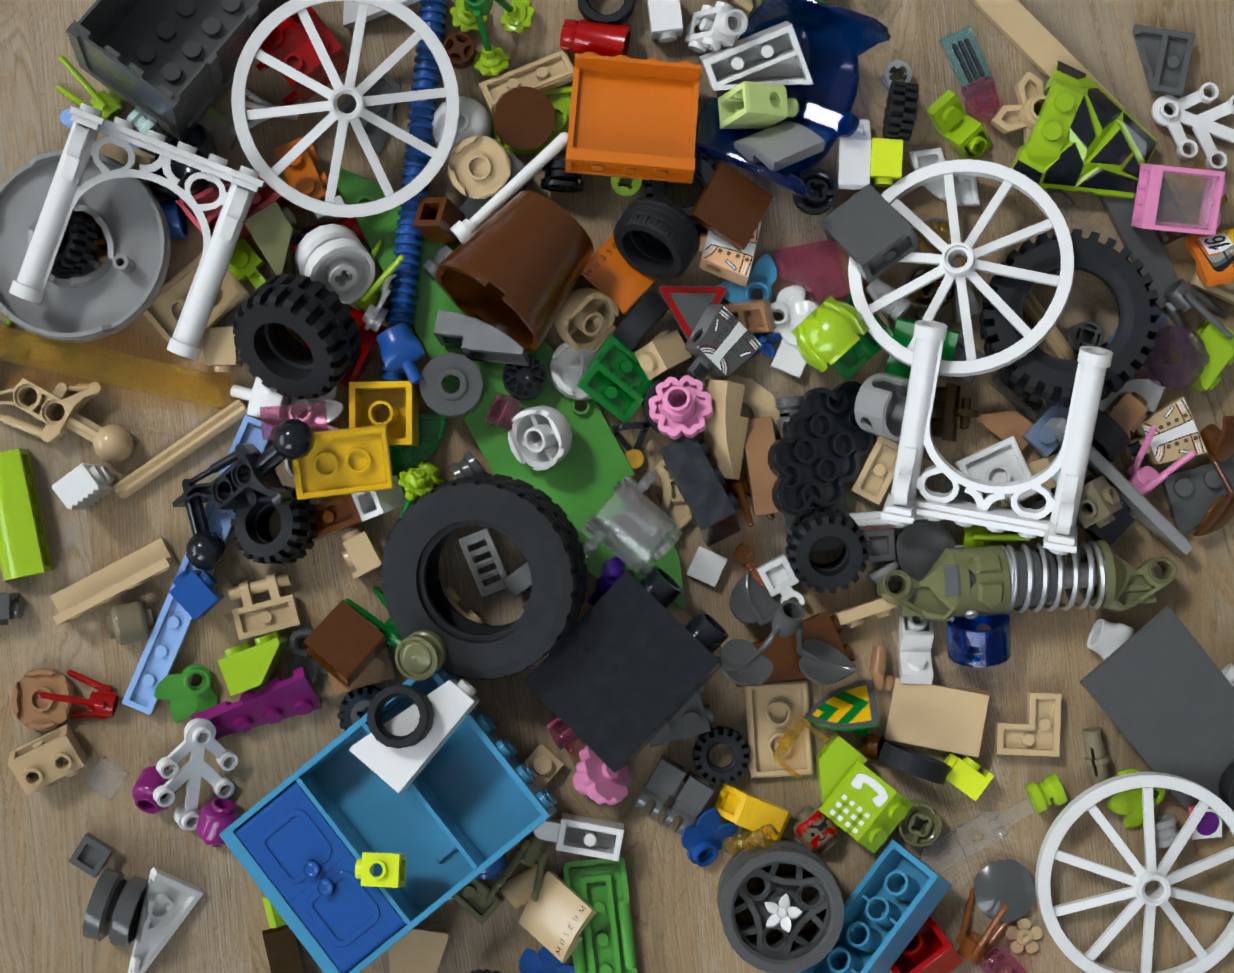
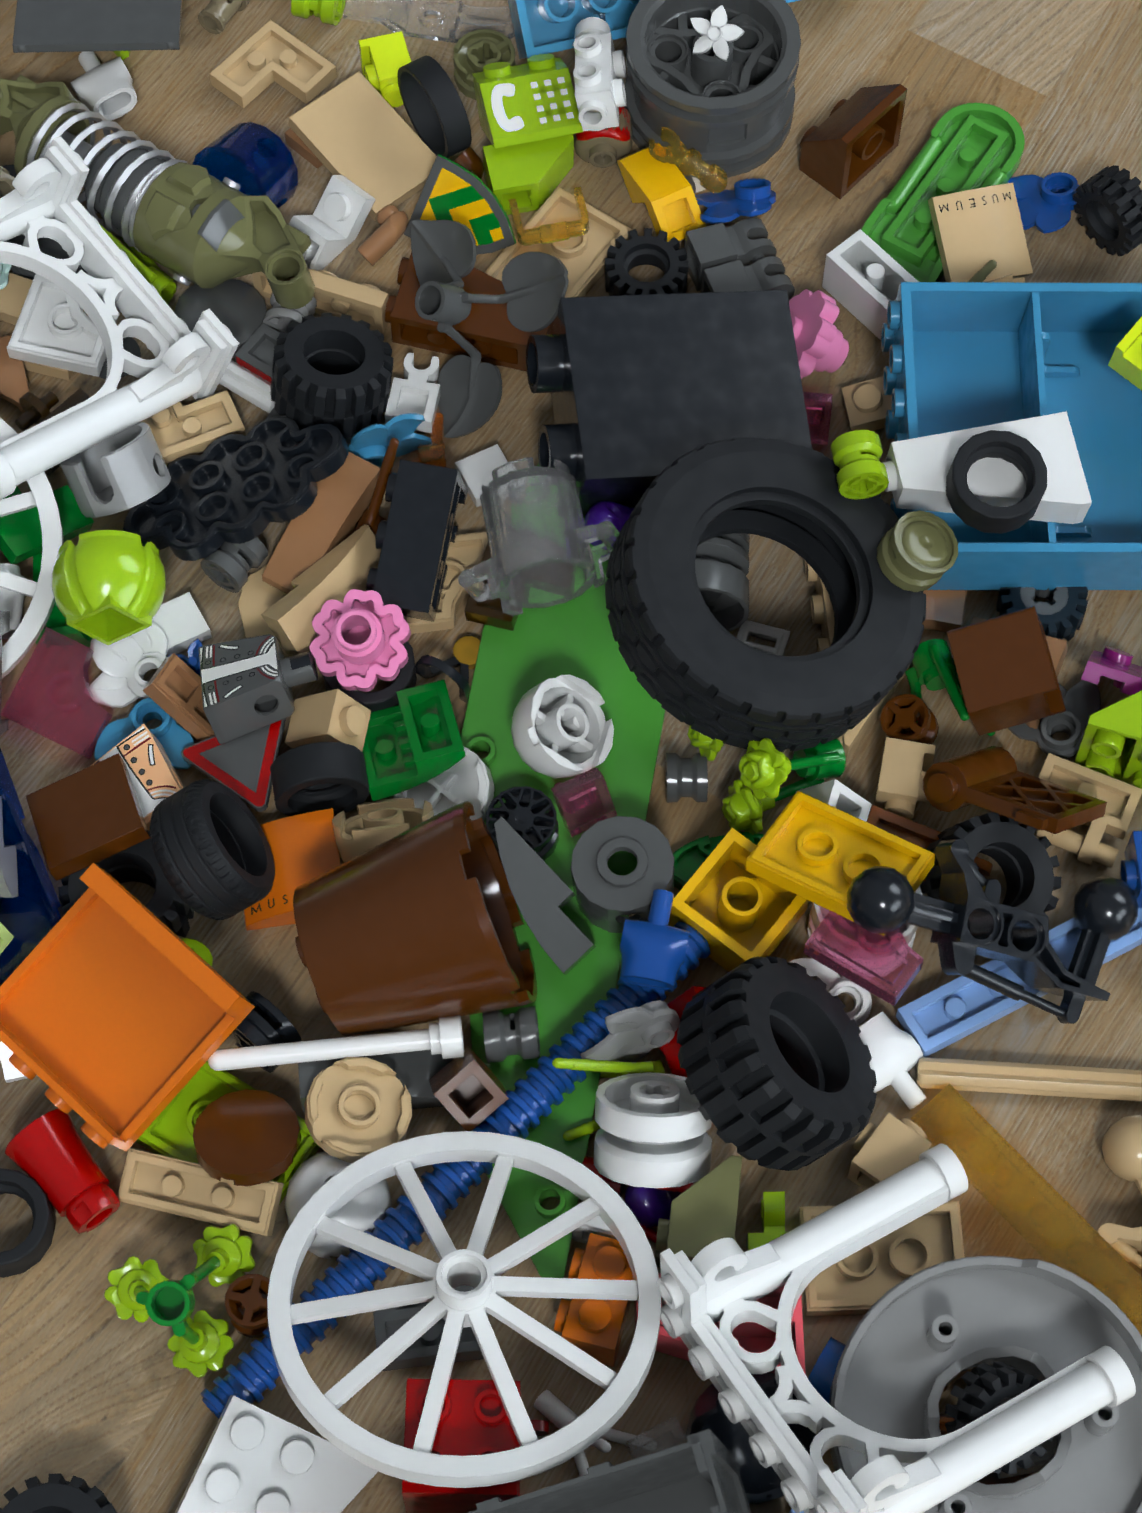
camera: 140 degrees left, 25 degrees down
(317, 575) = (993, 783): none -> reddish brown piece
(371, 594) = (902, 714): none -> reddish brown wheel
(483, 678) = (860, 470): none -> lime wheel
(676, 930) = (853, 138): none -> reddish brown slope
(773, 528) = (373, 440): none -> dark azure plate
(837, 849) = (597, 75): none -> white brick

